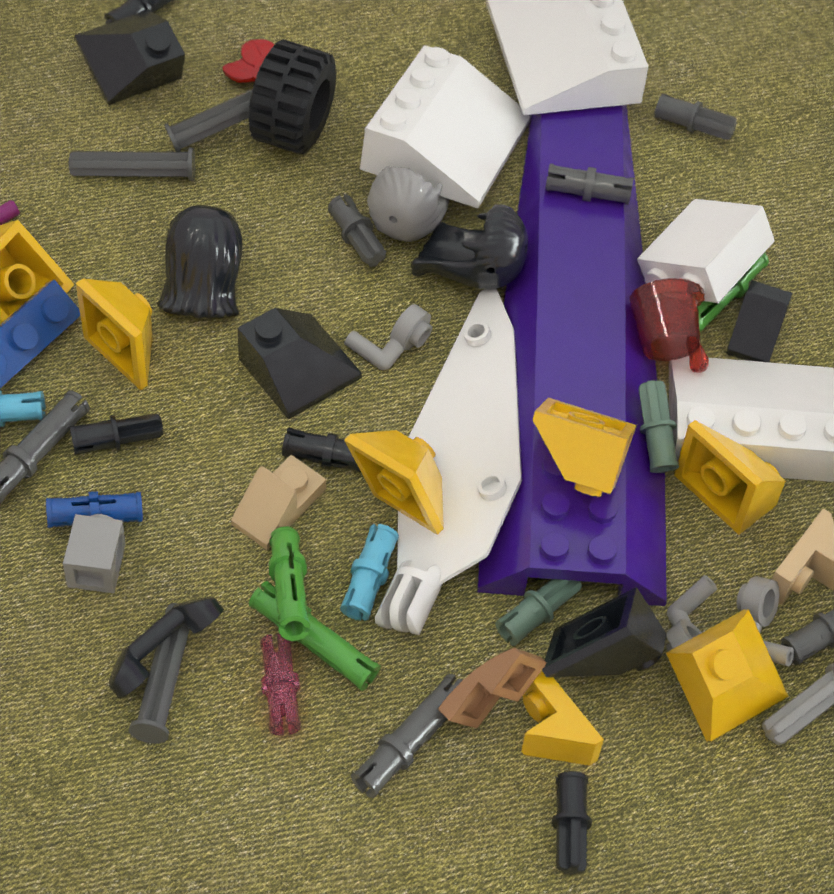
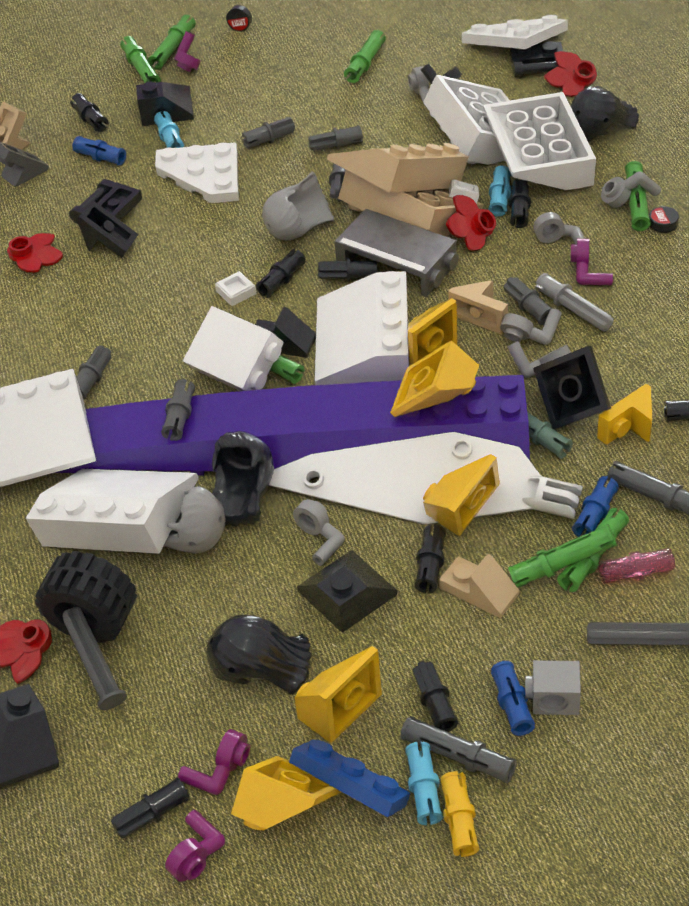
camera: 85 degrees left, 10 degrees down
(29, 172) = (150, 808): none -> black axle
(74, 233) = (232, 752): none -> magenta plate
(129, 671) = (652, 653): black bar -> none
(133, 164) = (140, 725): dark grey axle -> none
(356, 230) = (212, 561): dark grey axle -> none
(369, 572) = (533, 523): medium azure pin -> none
(392, 652) = (595, 506): none -> blue pin
(502, 676) = (618, 426): medium nougat slope -> none
(658, 427) = (387, 367): sand green axle -> none
(669, 321) = (306, 362): clear red hat -> none
(727, 675) = (581, 328): yellow slope -> none

